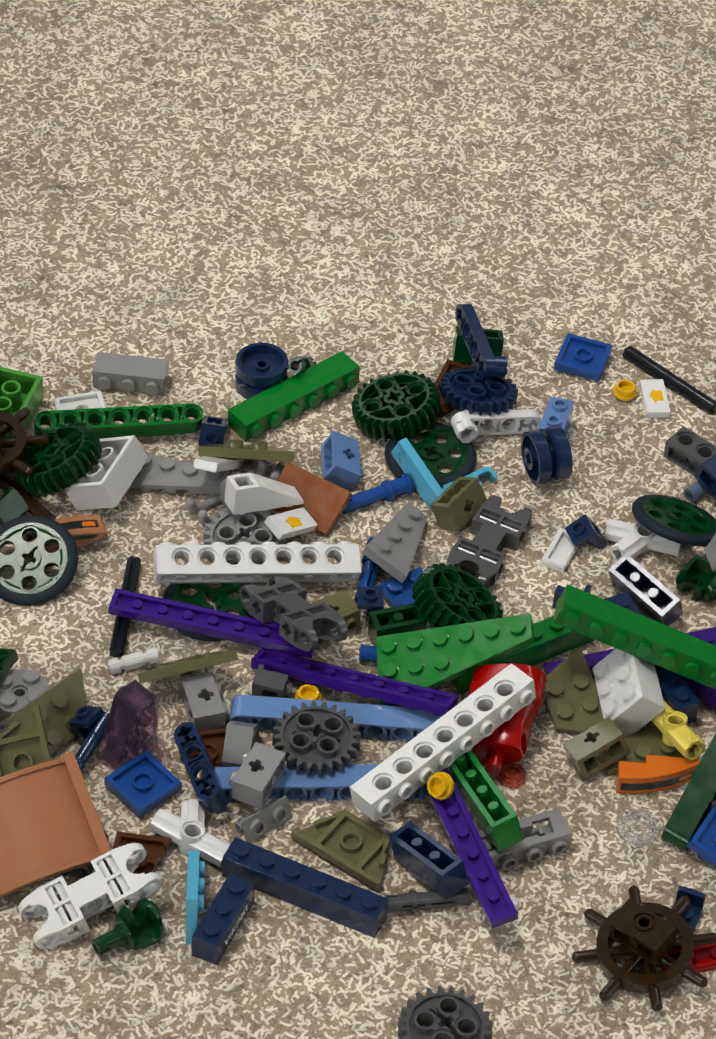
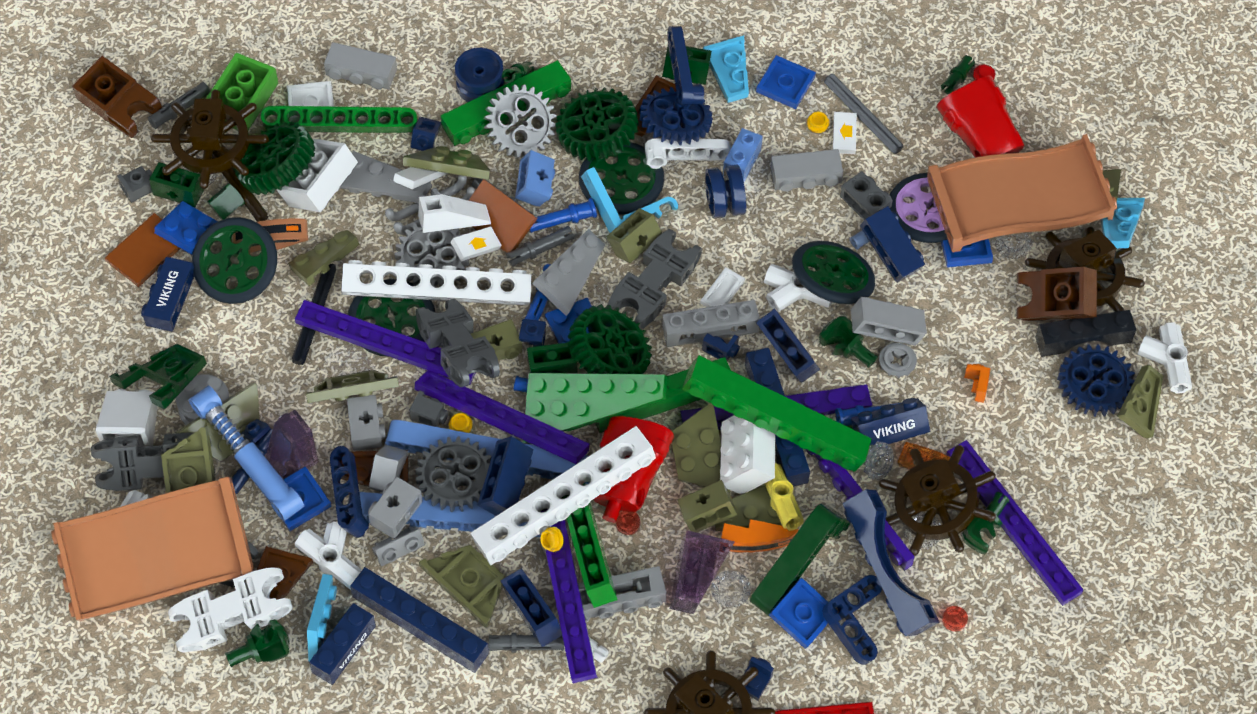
camera: 10 degrees right, 15 degrees up
(124, 550) = (318, 259): none -> olive wing
(130, 780) = (281, 496): none -> medium blue piece
(133, 660) = (311, 371): white axle -> none
(298, 391) = (507, 105): none -> light grey gear
(350, 527) = (539, 246): none -> dark grey pin
(374, 730) = (505, 475): none -> dark blue brick
(522, 349) = (729, 68): none -> medium azure wing
(560, 572) = (712, 320): none -> light grey brick
(585, 530) = (747, 275): dark blue bracket -> none
(597, 807) = (696, 567): none -> clear purple wedge
(624, 432) = (806, 170): none -> light grey brick

